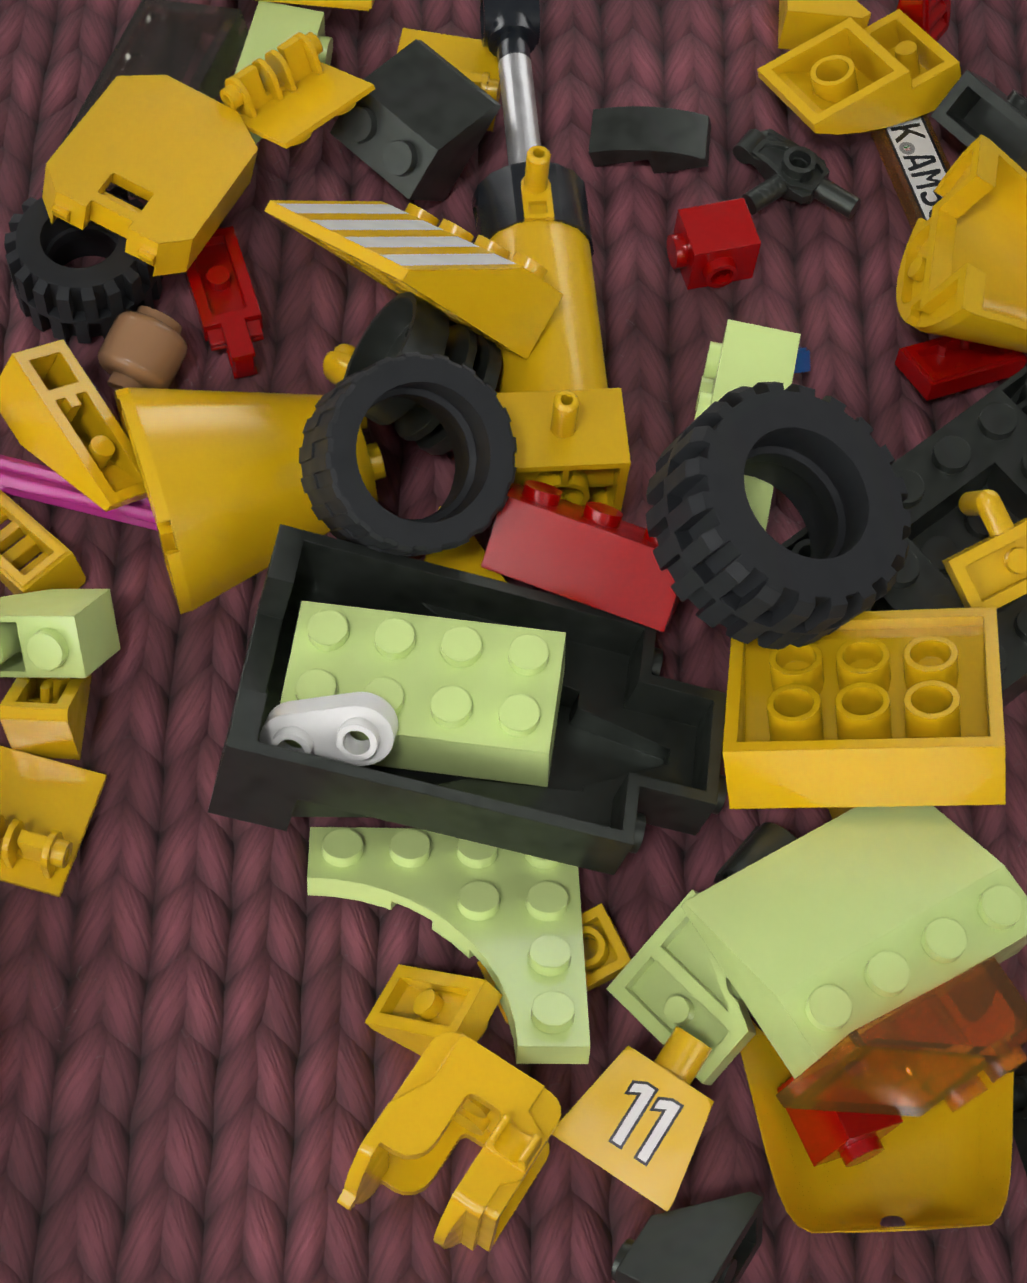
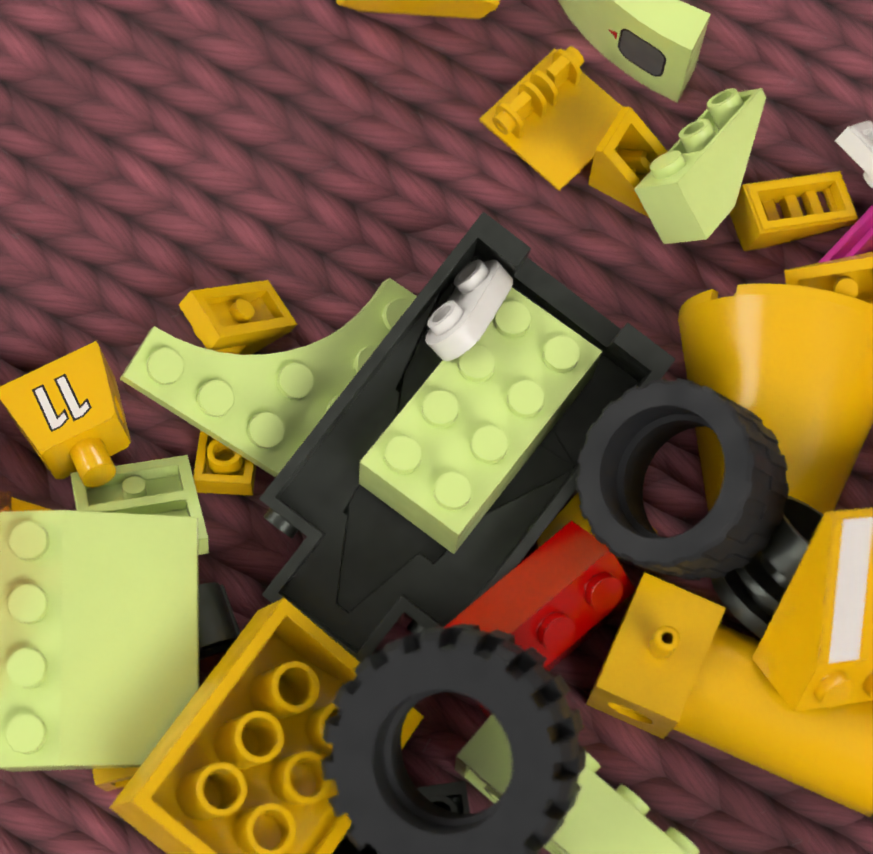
camera: 125 degrees right, 10 degrees up
(450, 1096) = (143, 283): yellow animal -> none

